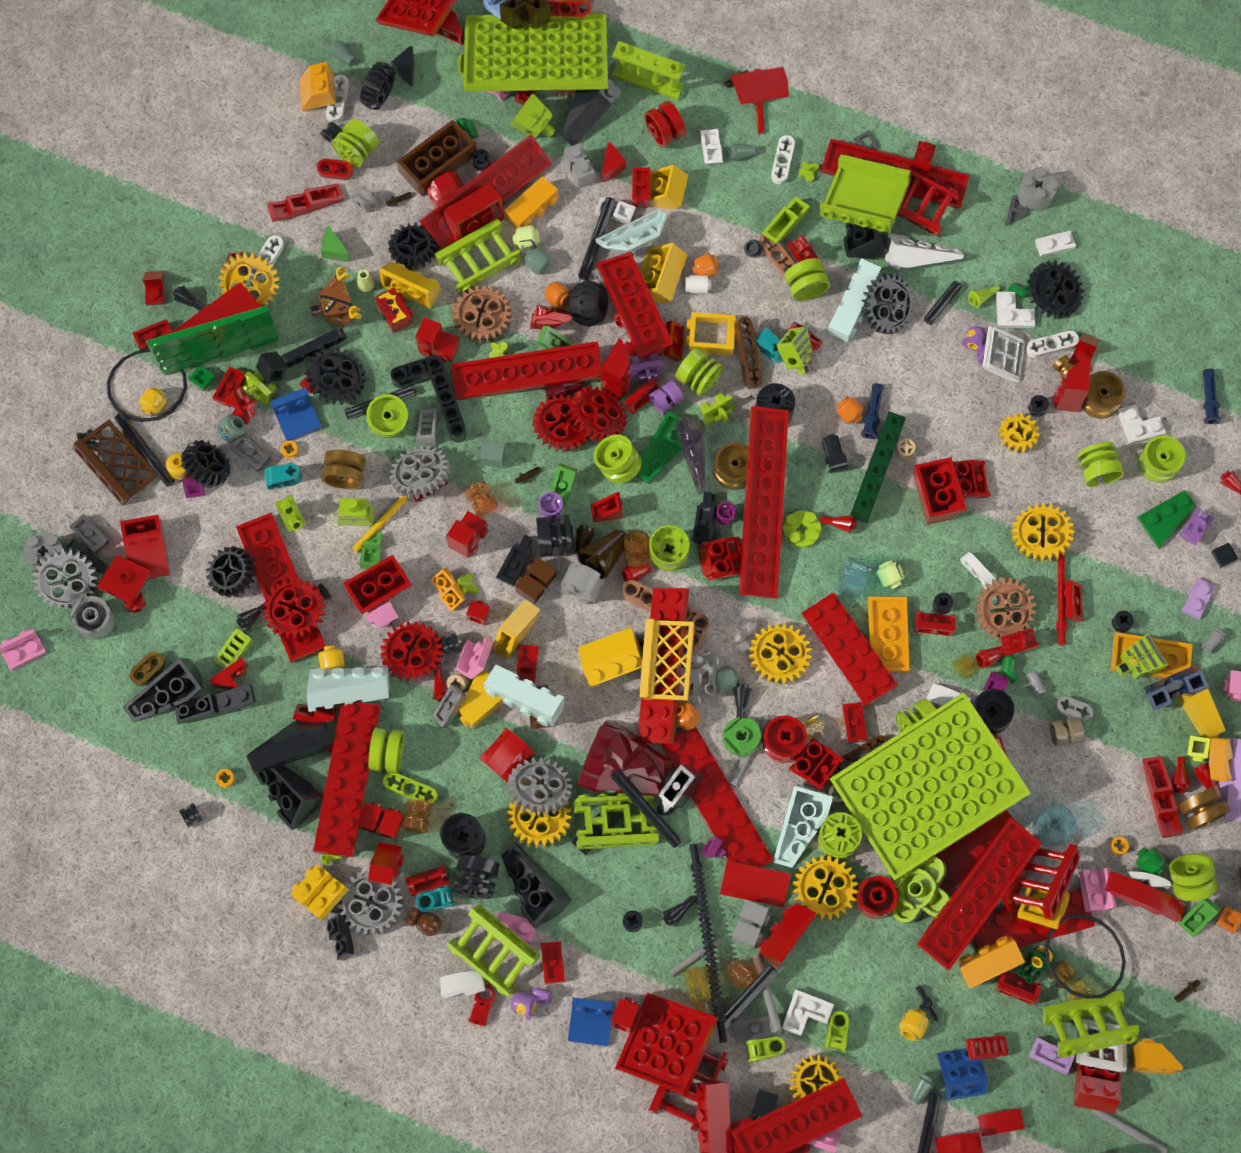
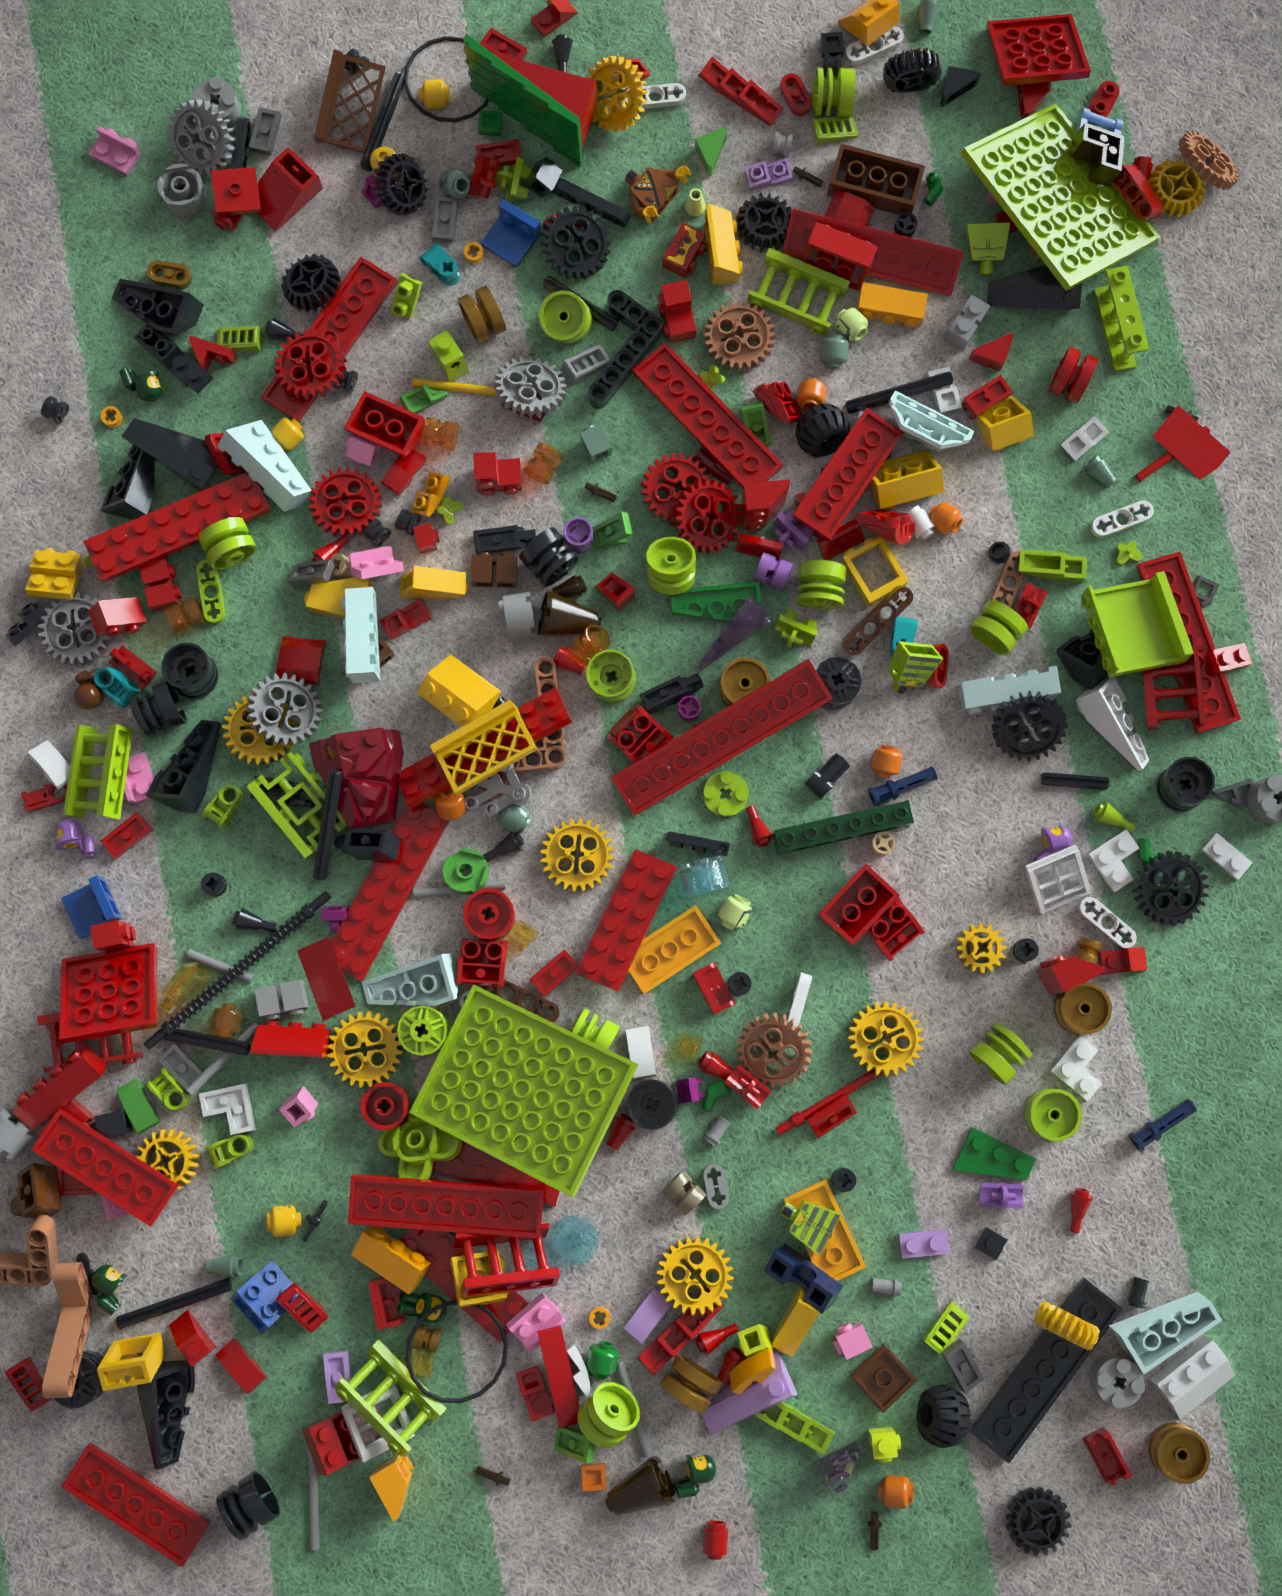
camera: 55 degrees right, 10 degrees up
(221, 737) = (145, 385): none -> dark green piece
(316, 123) = (832, 43): none -> black plate
(374, 173) = (829, 137): none -> lime slope
(378, 222) = (764, 175): none -> lavender slope
(409, 553) = (440, 433): none -> clear orange wheel
(417, 598) = (402, 471): none -> red slope
(457, 617) = (407, 521): none -> black wheel
(579, 878) = (223, 806): none -> lime piece
(687, 302) = (888, 525): none -> red slope
(762, 1079) = (137, 1106): none -> bright green slope
(826, 567) = (699, 843): none -> black hinge
(838, 959) = (299, 1107): none -> bright pink brick
(992, 235) = (1198, 782): none -> black wheel
(1133, 776) = (679, 1289): none -> yellow gear
(1138, 811) = (647, 1316): none -> lavender slope
(1145, 924) = (535, 1393): none -> red slope

